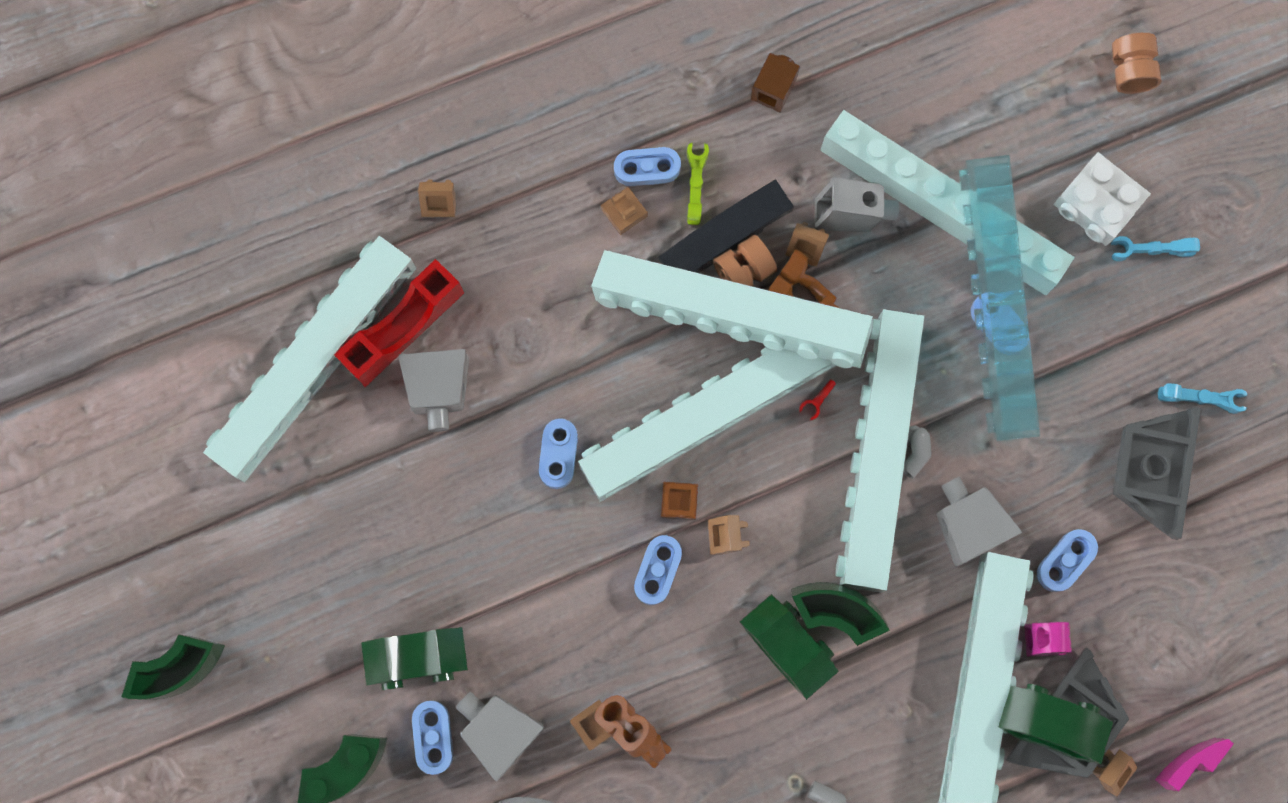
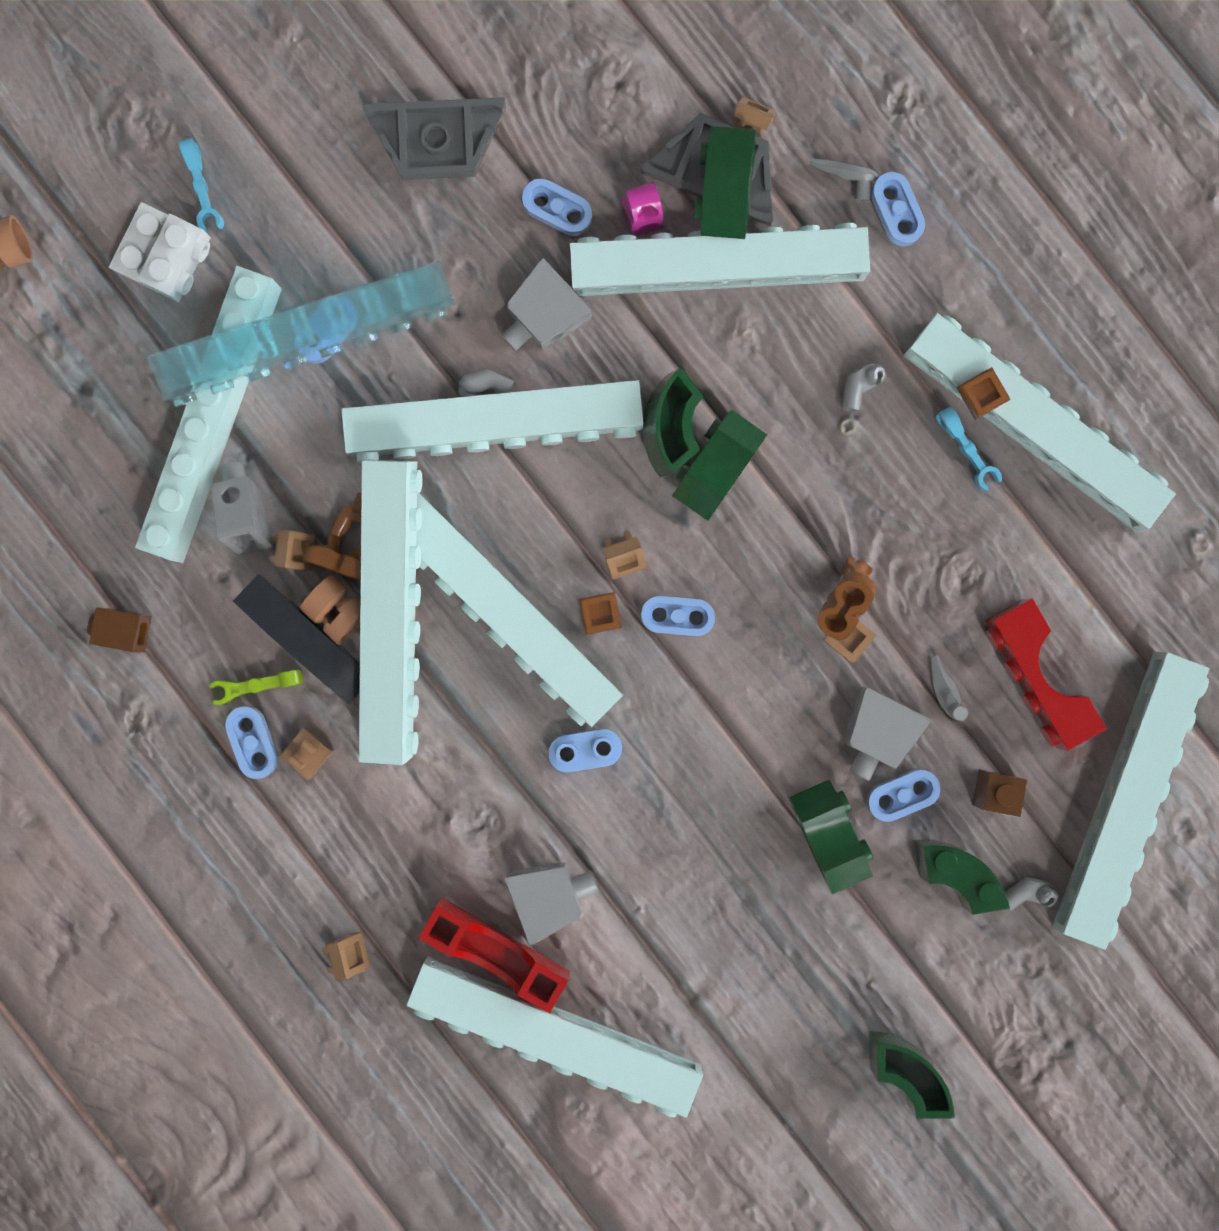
camera: 105 degrees left, 10 degrees up
(819, 399) = (457, 498): red hand -> none
(1202, 756) = (714, 33): dark pink slope -> none
(1224, 400) = (347, 83): medium azure piece -> none

